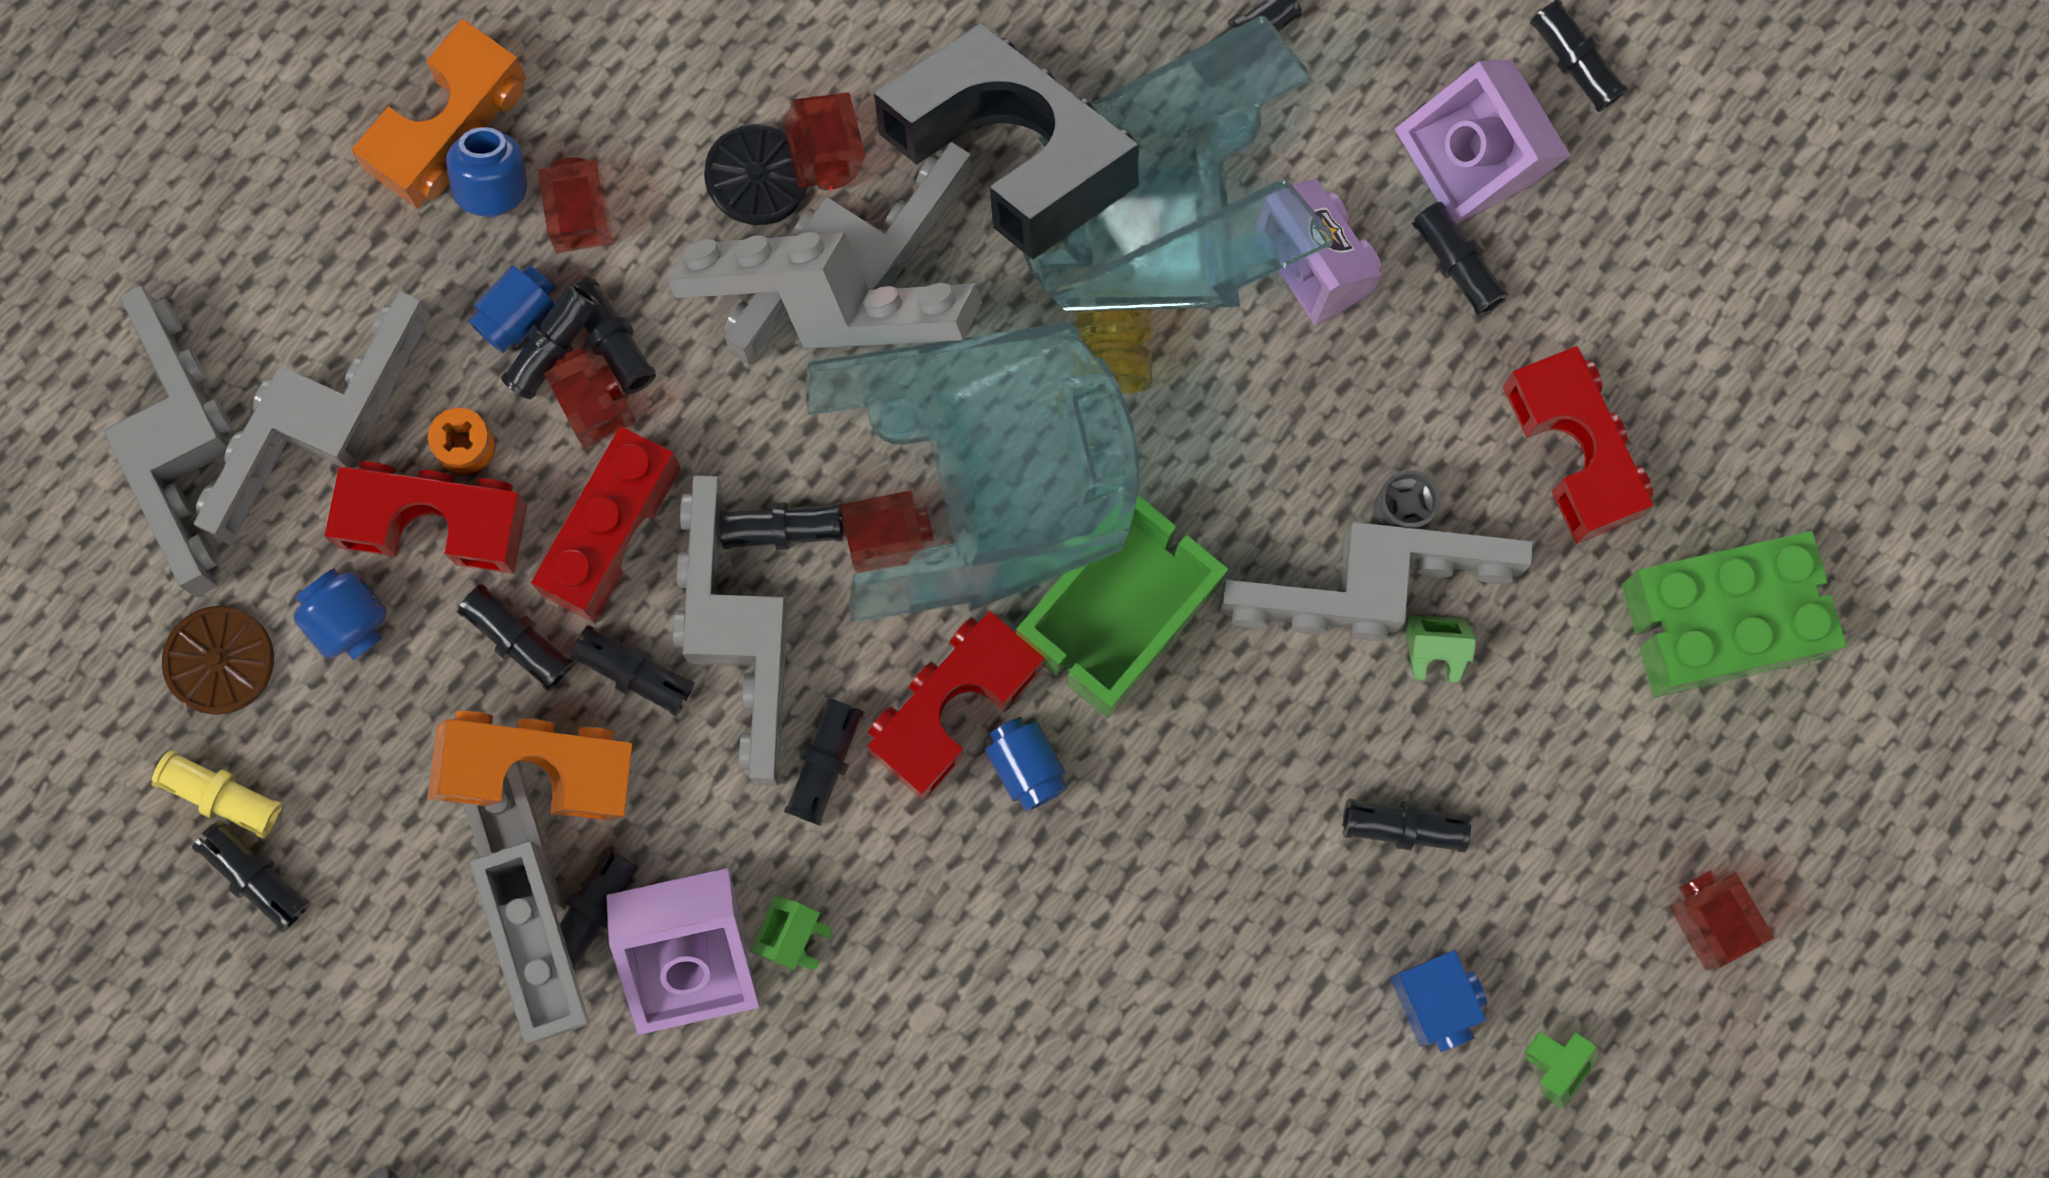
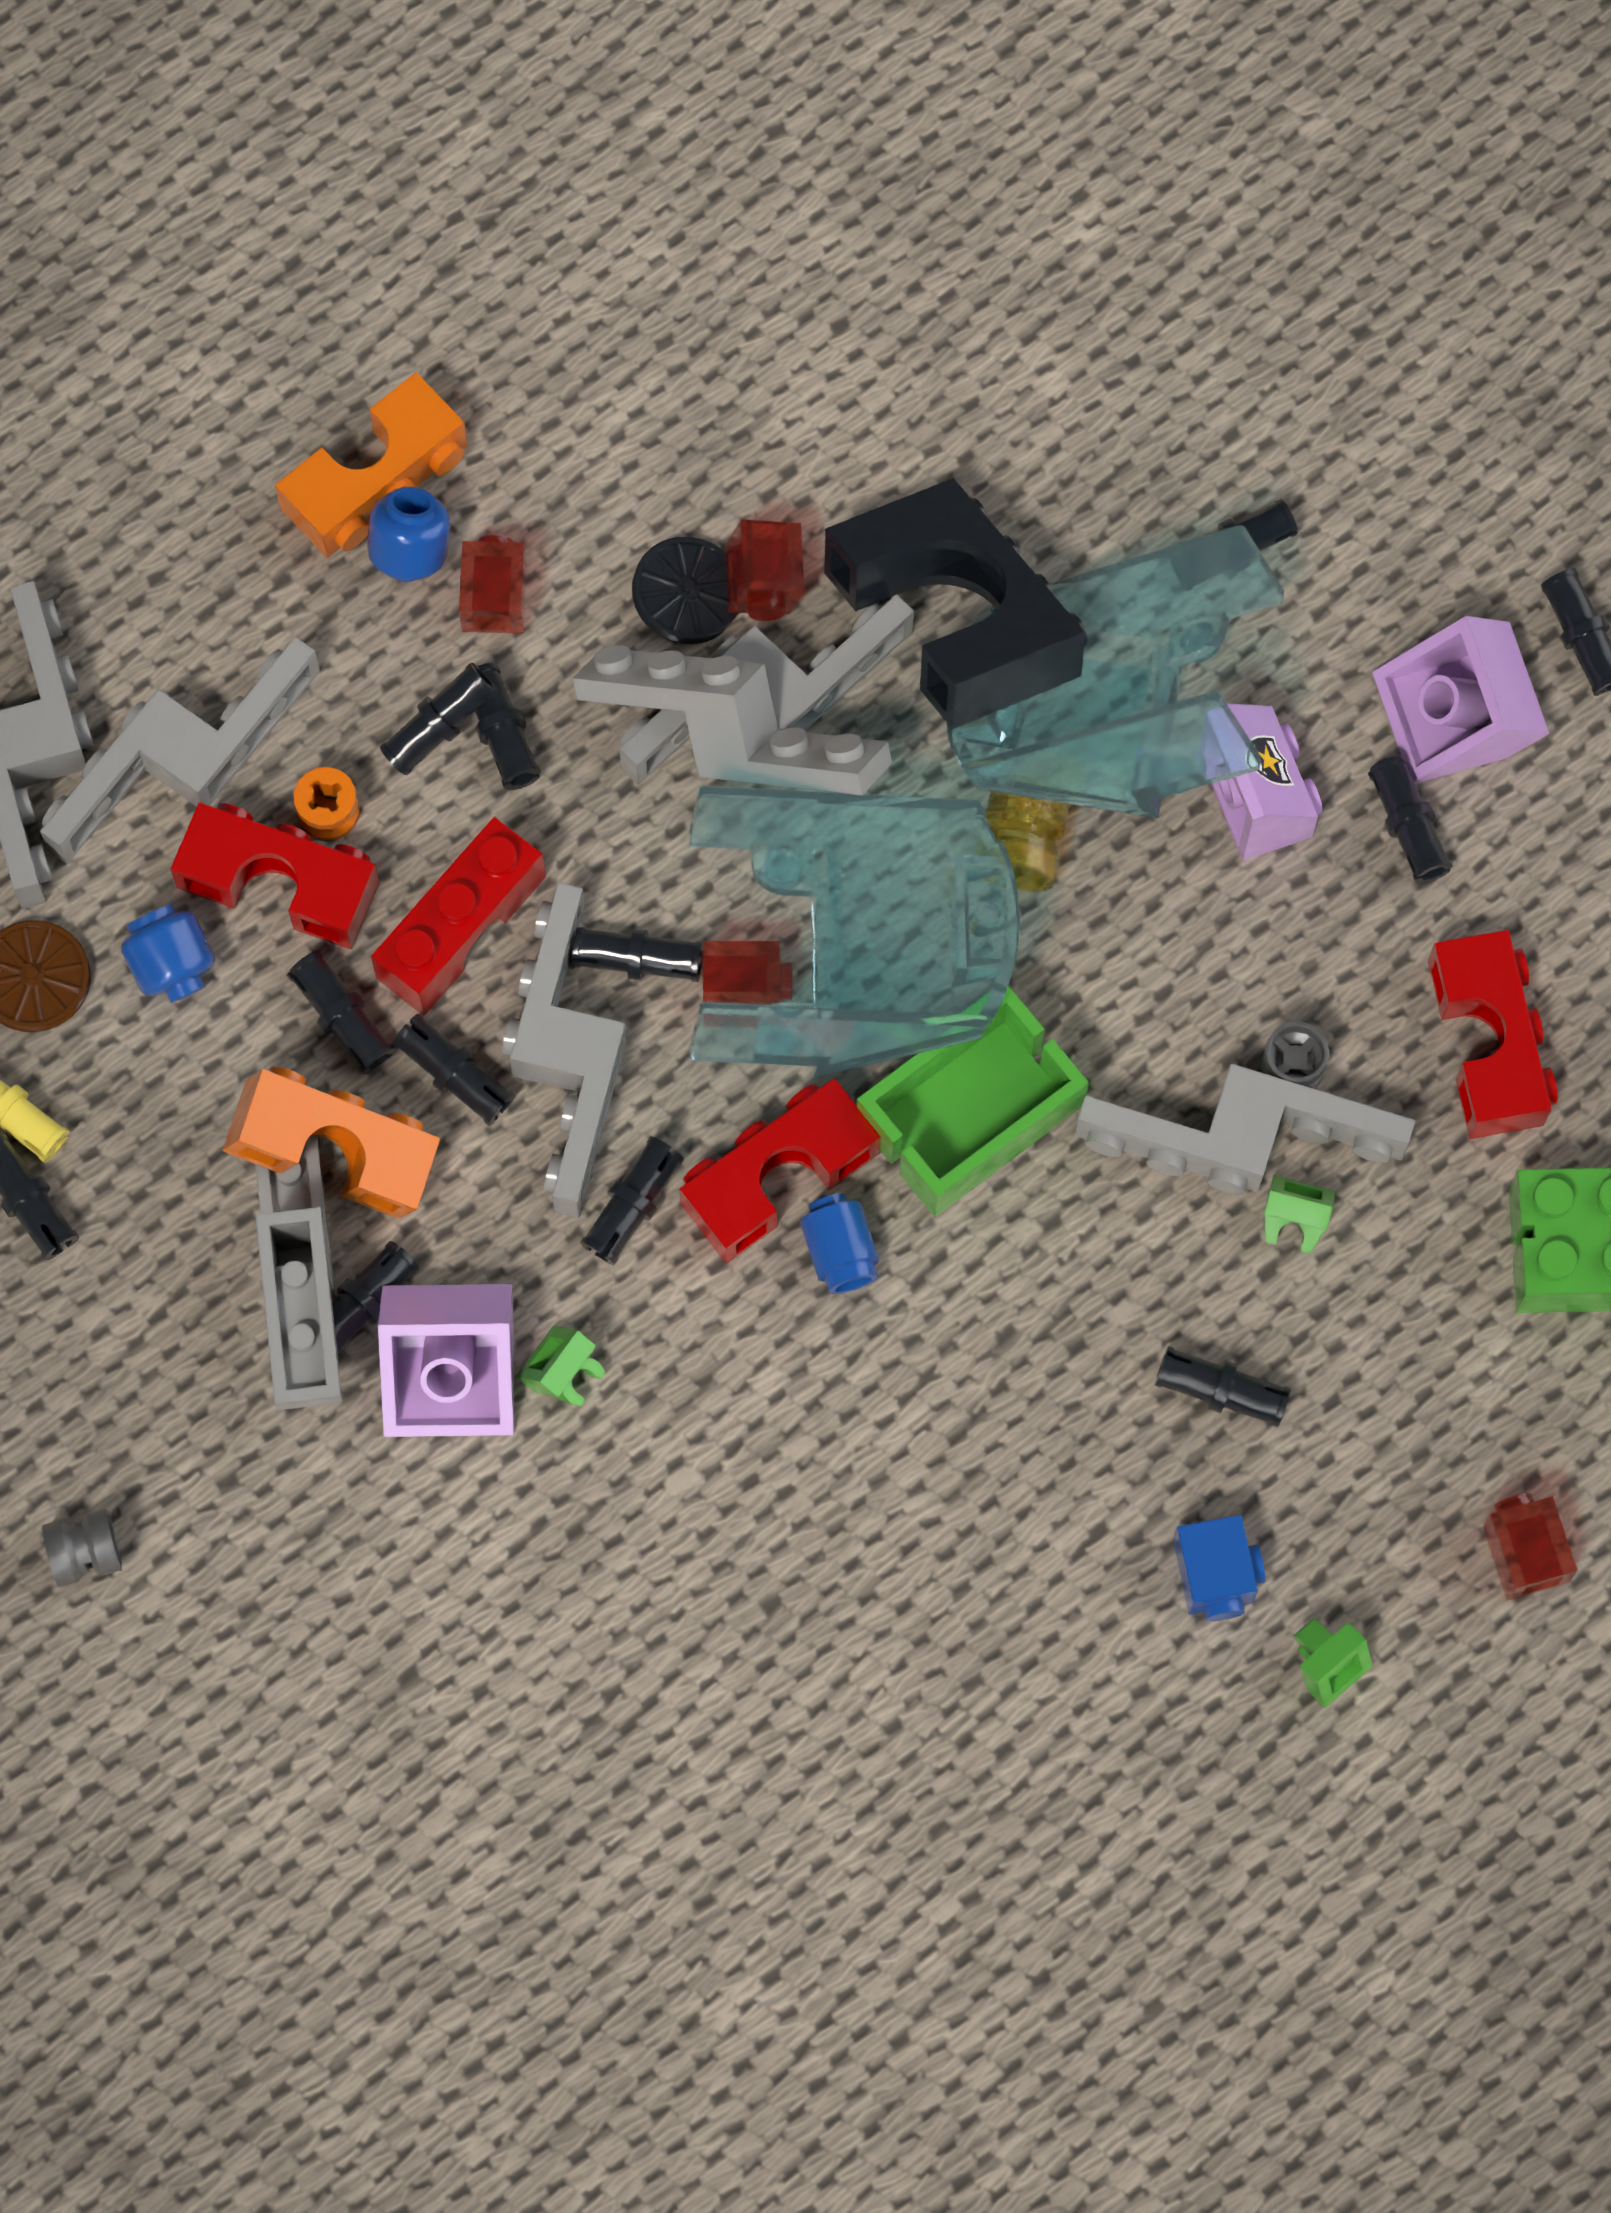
camera: 15 degrees right, 5 degrees down
(512, 307) = (406, 677): blue brick -> none
(588, 397) = (466, 784): clear red brick -> none

